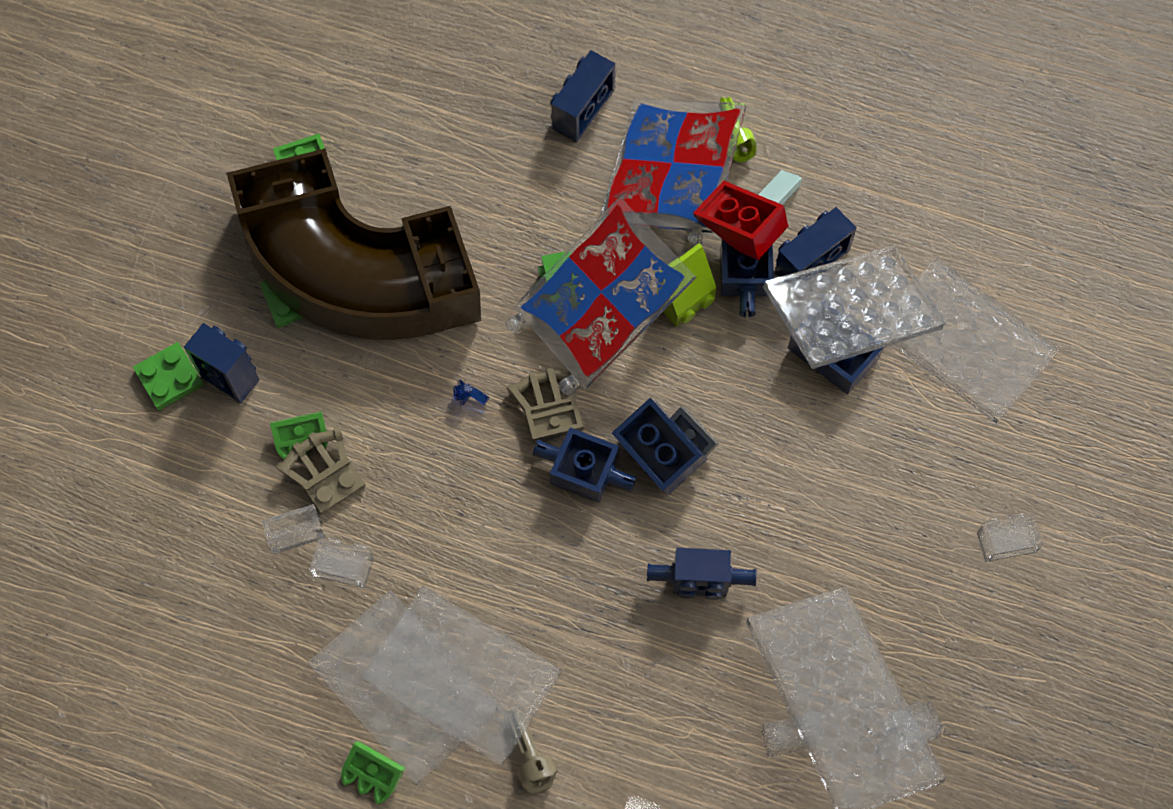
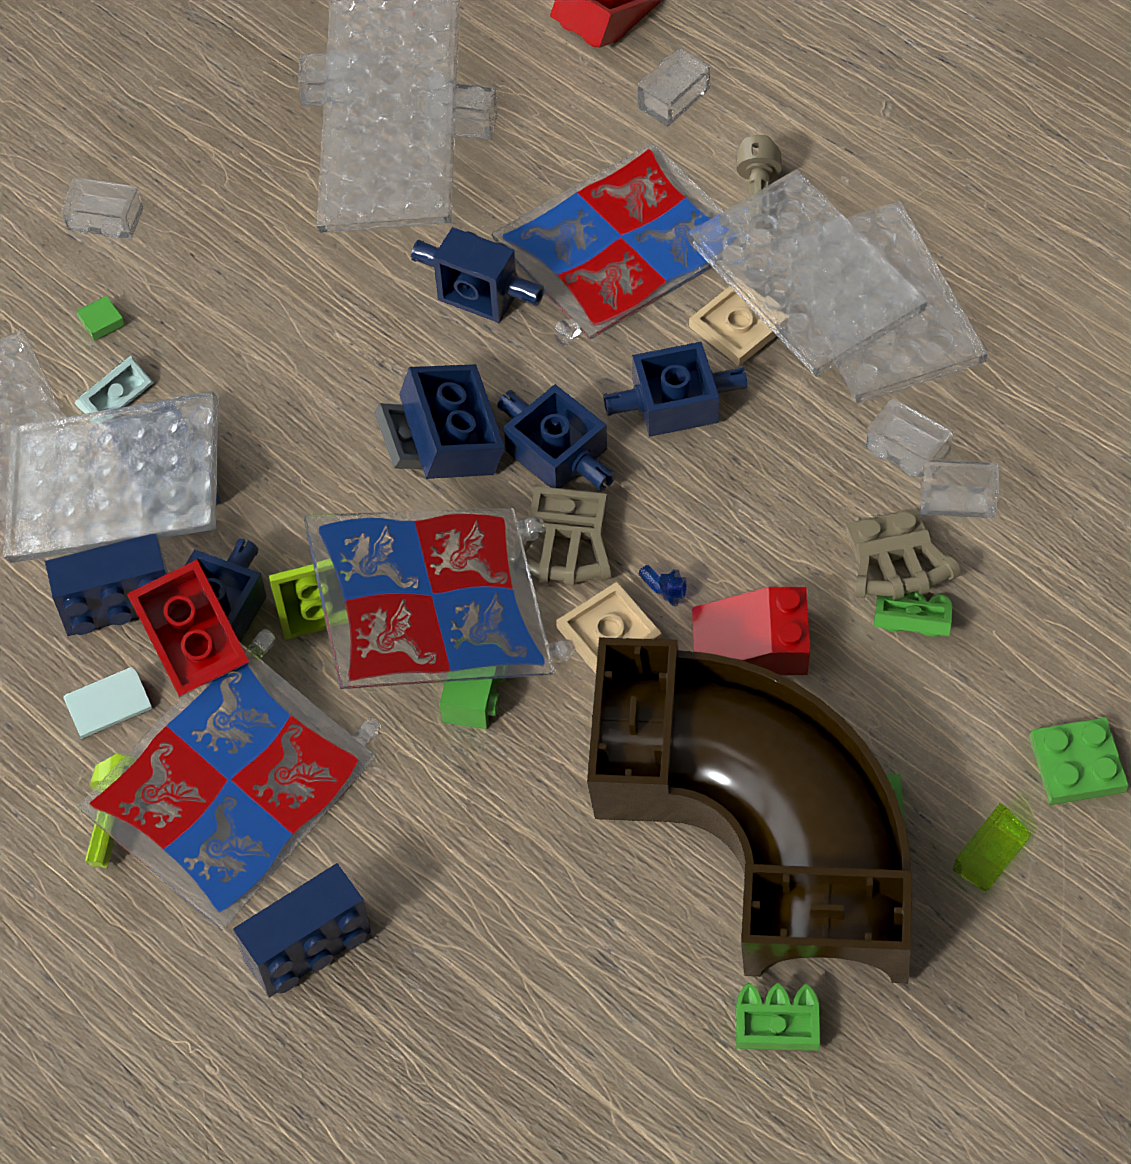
camera: 155 degrees left, 10 degrees down
(208, 299) = (991, 848): none -> clear neon green slope
(222, 362) = (996, 705): dark blue brick -> none
(372, 771) = (946, 227): bright green plate -> none
(398, 379) = (757, 627): none -> red slope
(491, 349) = (605, 615): none -> tan plate
(502, 611) = (731, 327): none -> tan plate
(522, 519) = (675, 389): none -> dark blue brick
(621, 667) = (613, 241): none -> flag
(908, 401) = (115, 388): none -> light aqua slope
(953, 453) = (100, 318): none -> bright green tile

